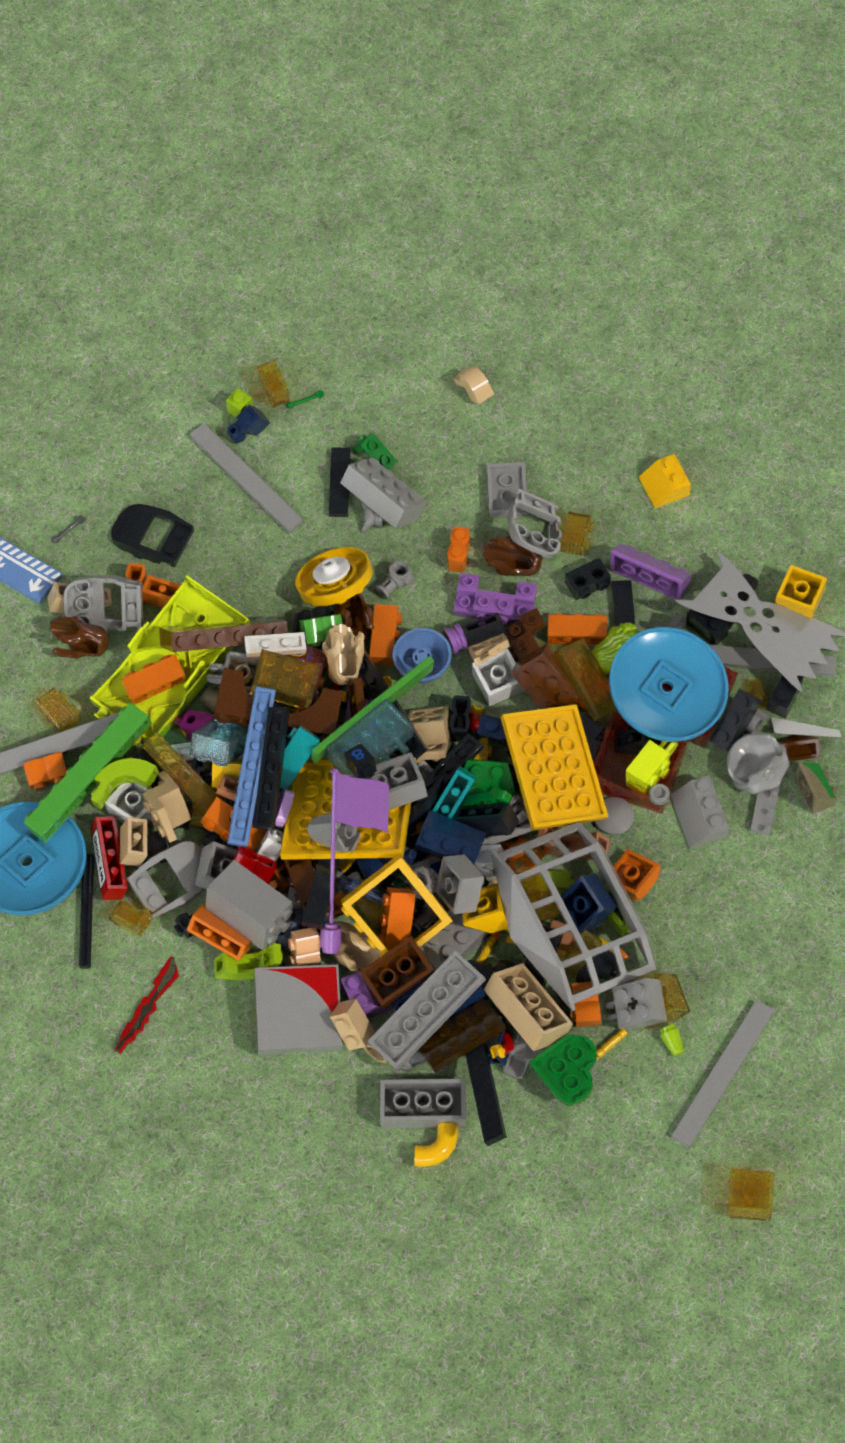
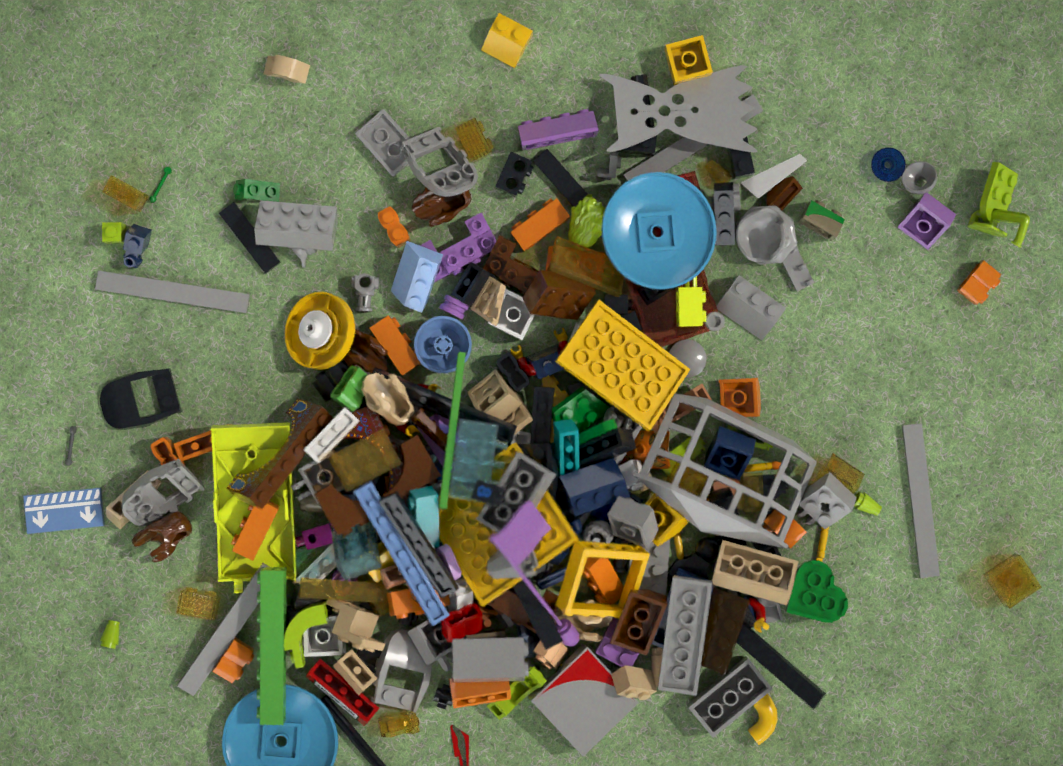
camera: 40 degrees left, 25 degrees up
(446, 593) = (416, 276): none -> light blue slope

